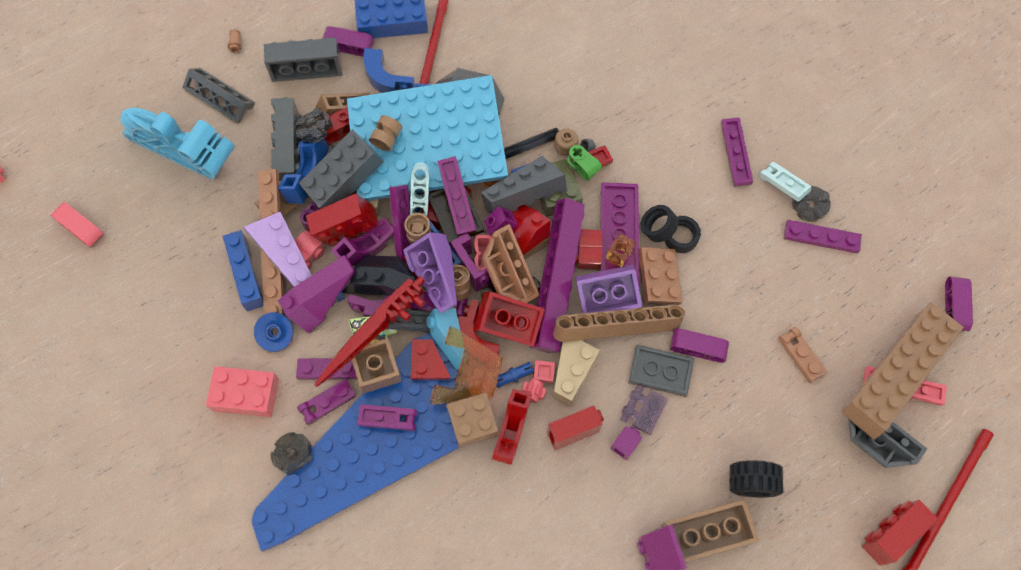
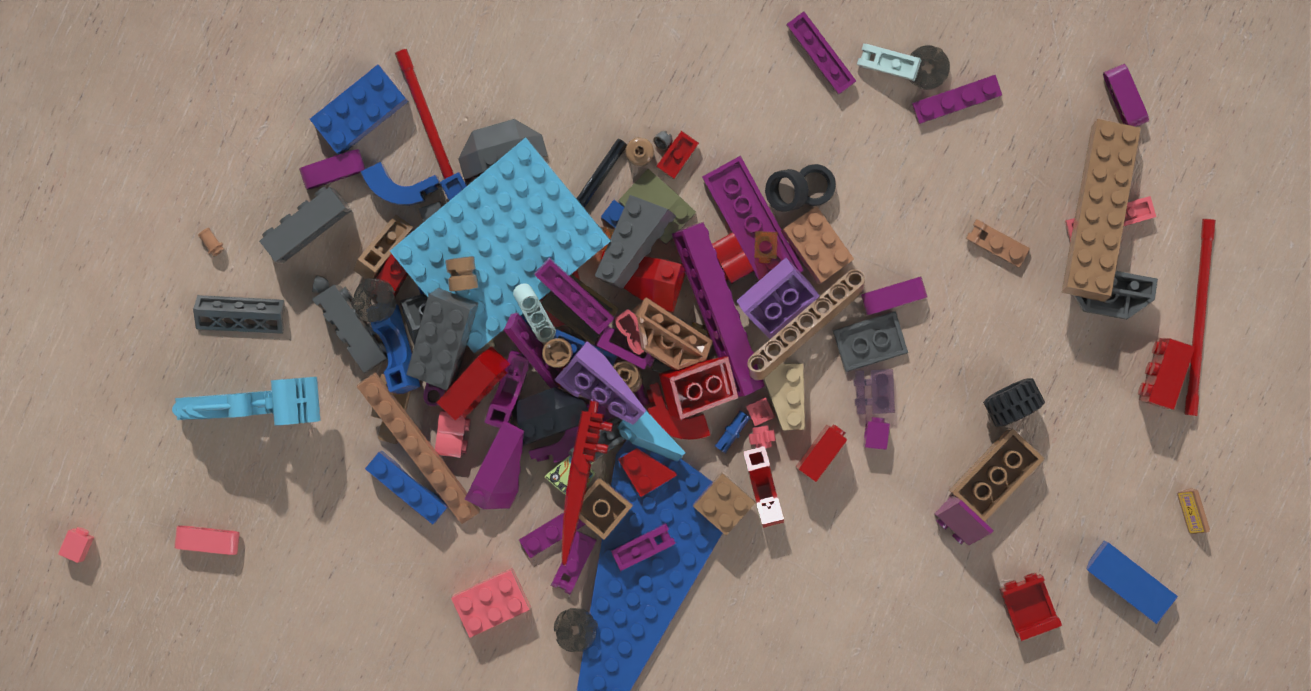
camera: 30 degrees left, 20 degrees up
(264, 331) = (479, 538): blue dish -> none
(279, 245) = (428, 447): lavender wing -> none
(476, 373) = (700, 457): clear orange wing -> none
(499, 218) = (631, 292): magenta brick -> none
(583, 163) = (677, 170): bright green piece -> none

